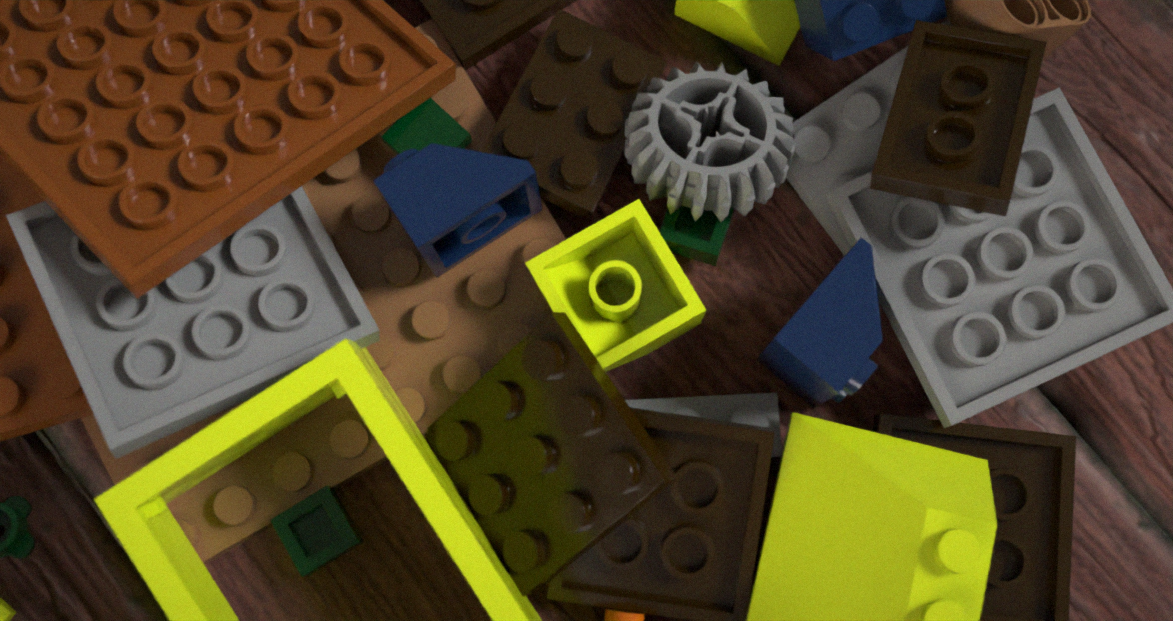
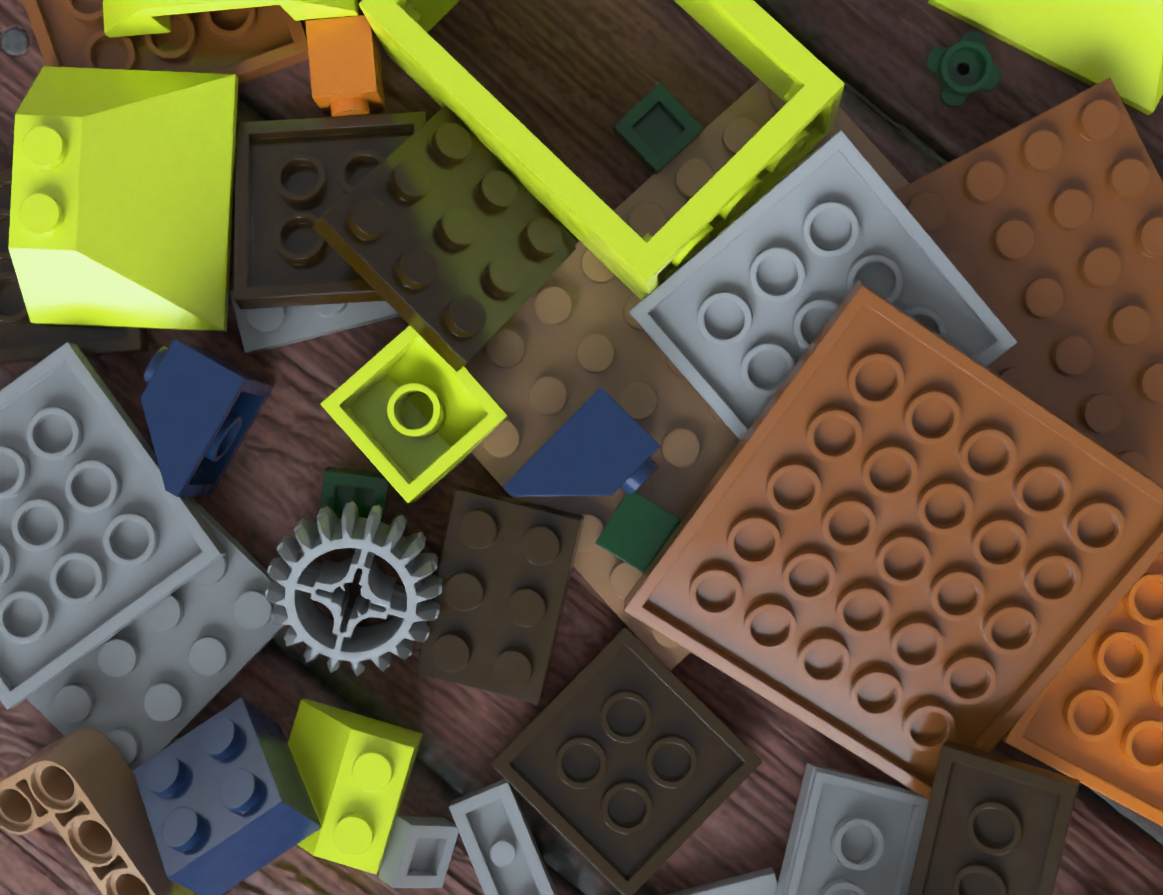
camera: 165 degrees right, 10 degrees up
(959, 117) = (100, 651): dark brown plate -> none

